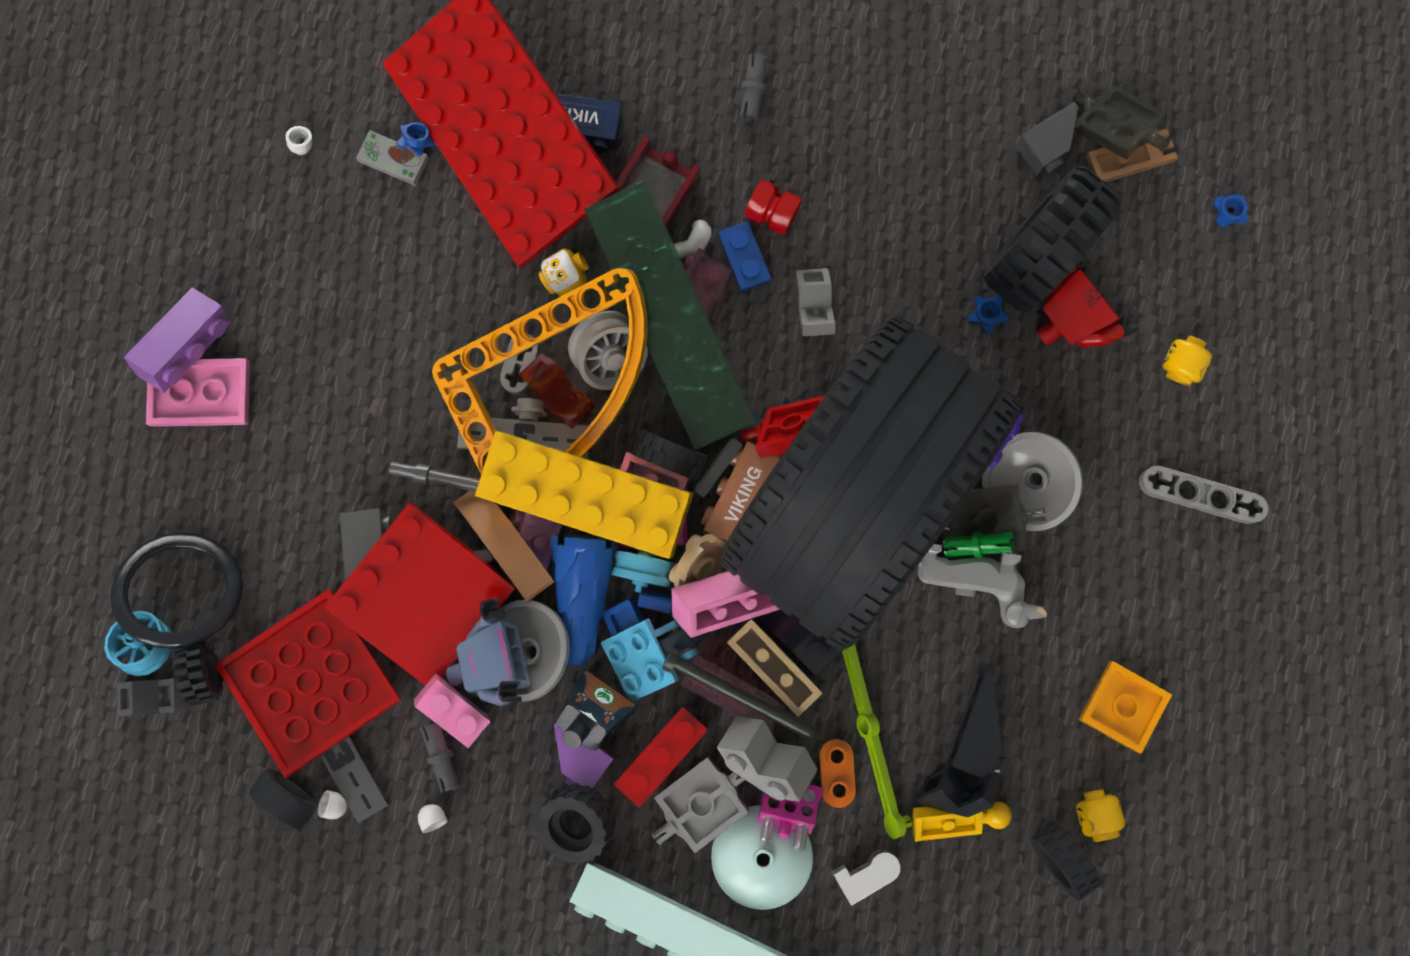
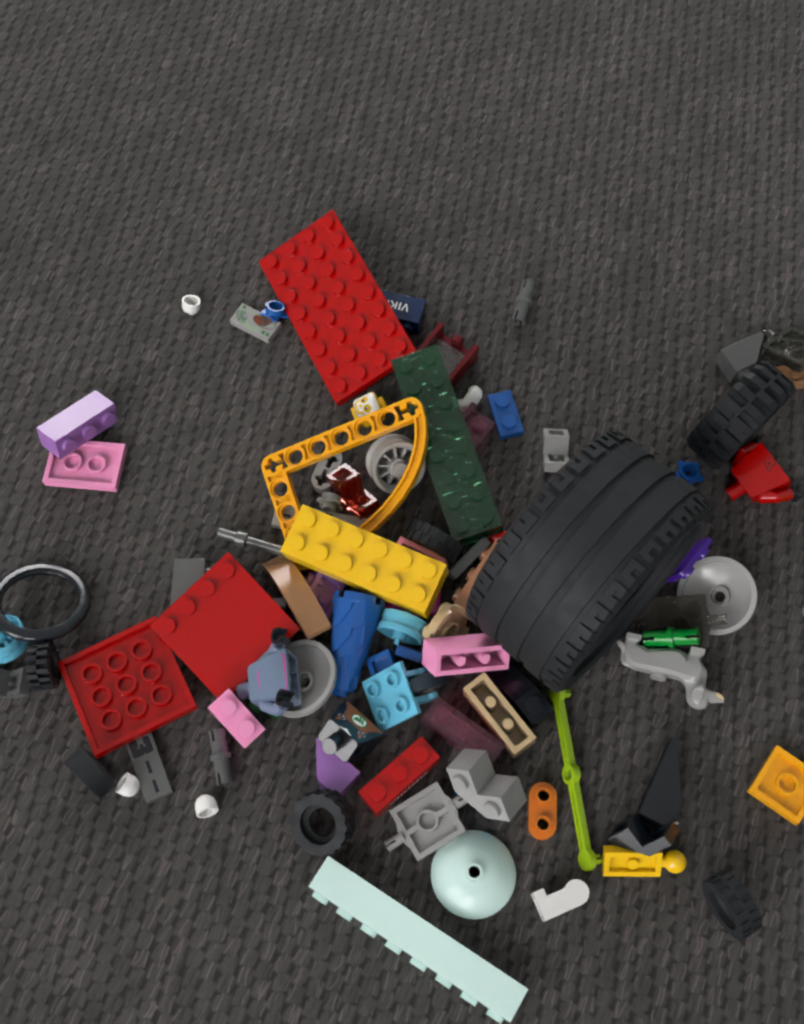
camera: 10 degrees right, 15 degrees down
(674, 661) = (466, 727): pearl dark grey bar -> none
(772, 207) = (528, 380): red wheel -> none
(791, 820) = (500, 836): dark pink piece -> none
(1100, 815) = (762, 873): yellow head -> none

